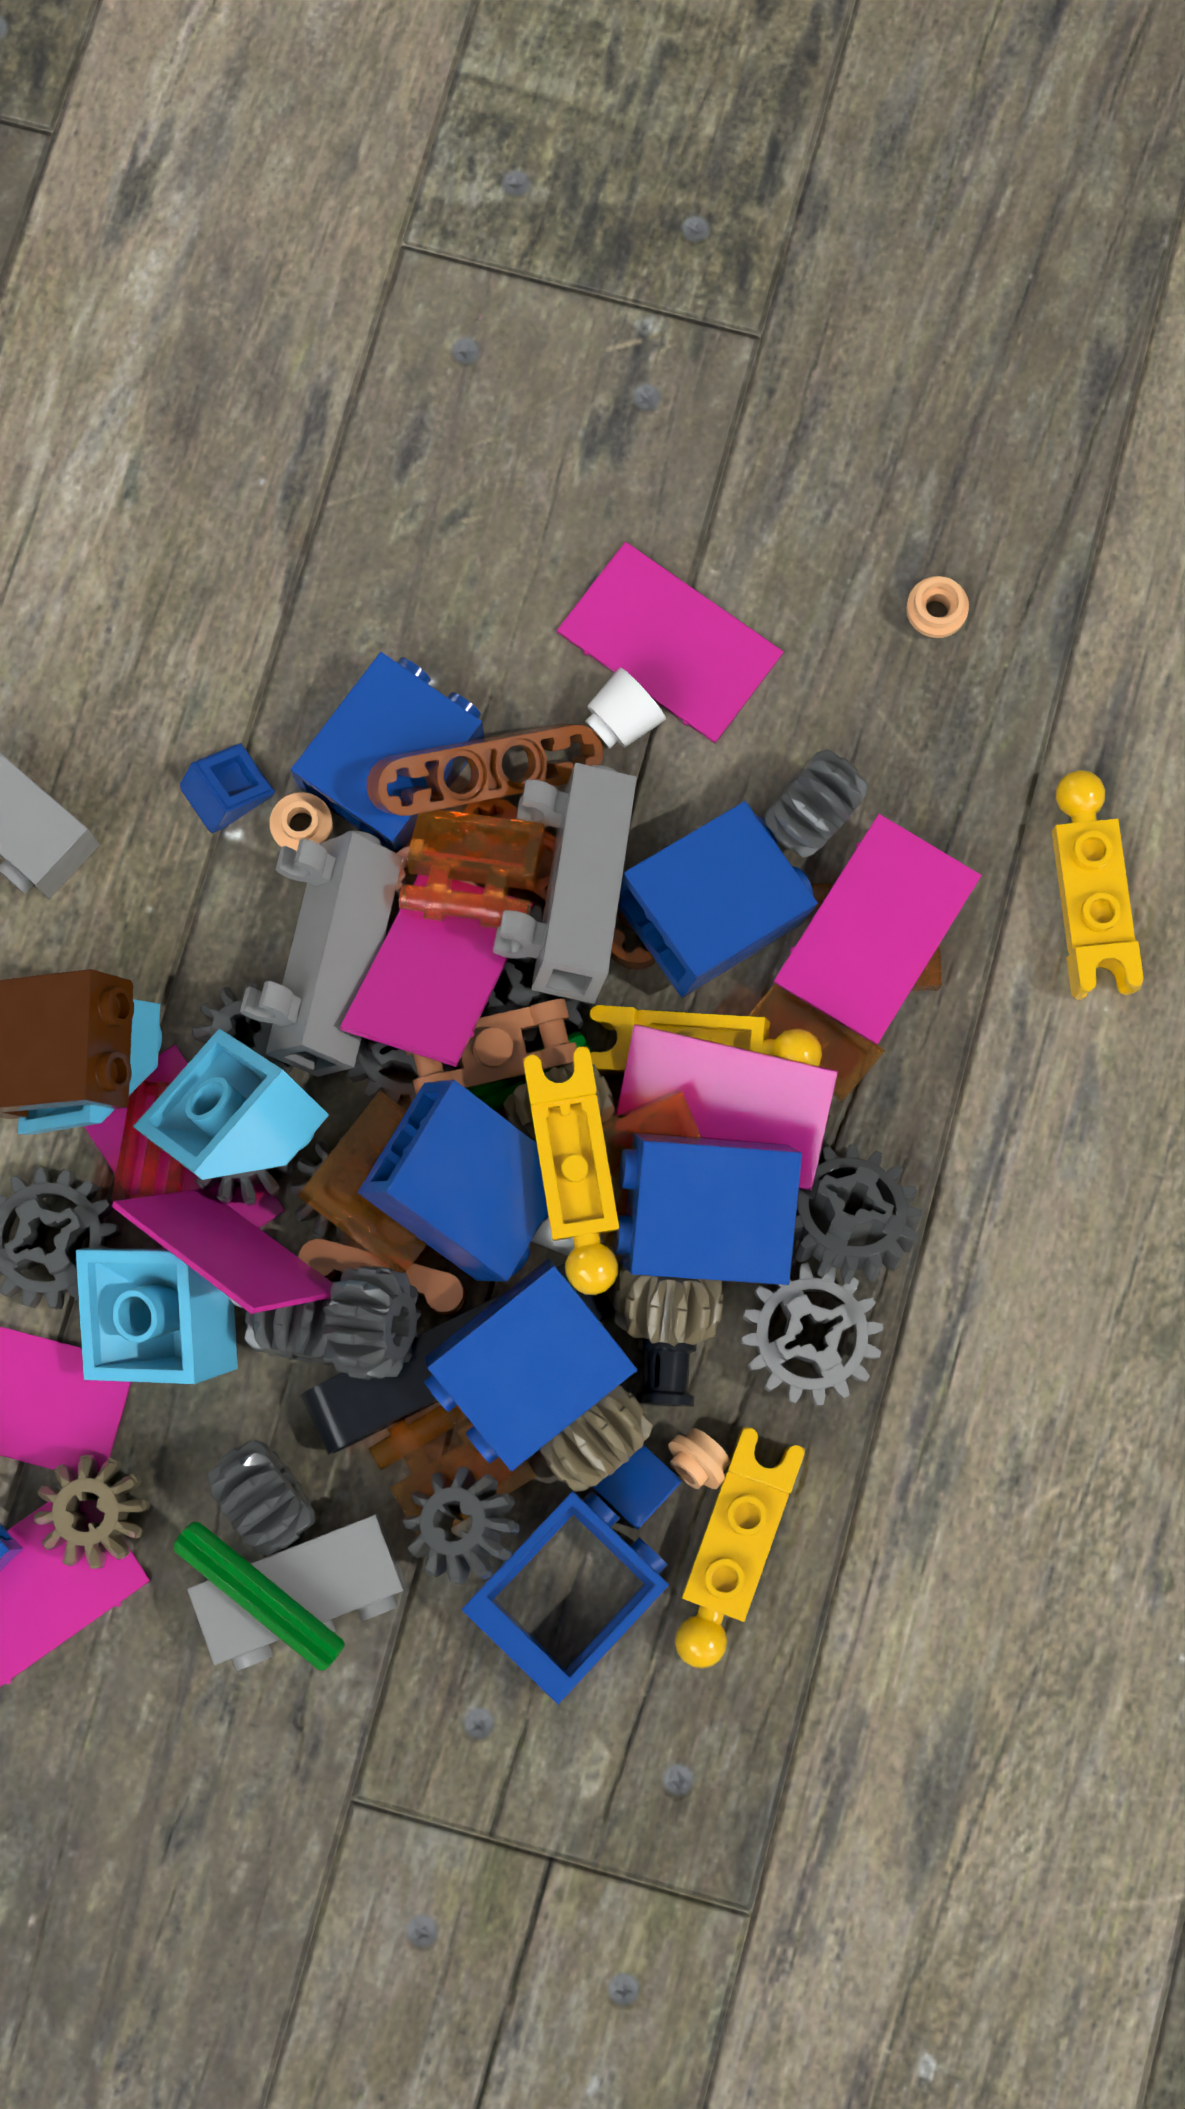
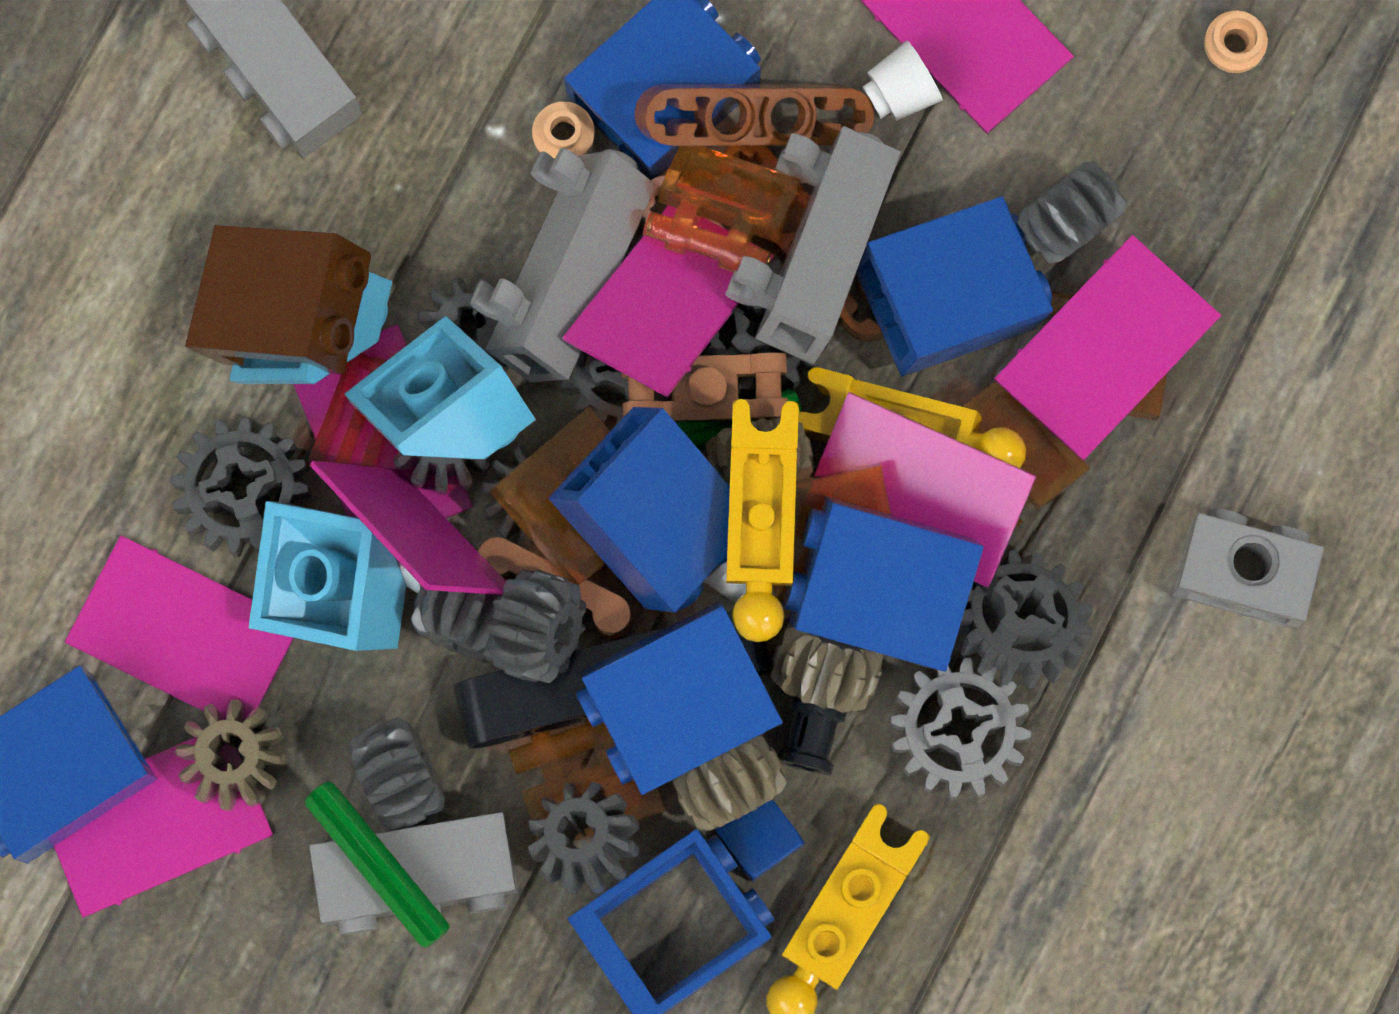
camera: 15 degrees right, 0 degrees up
(225, 787) = (496, 82): blue slope -> none
(698, 1459) = (825, 826): light nougat plate -> none
(1024, 1135) = (1210, 578): none -> light grey brick
(1094, 889) = (1331, 350): yellow plate -> none

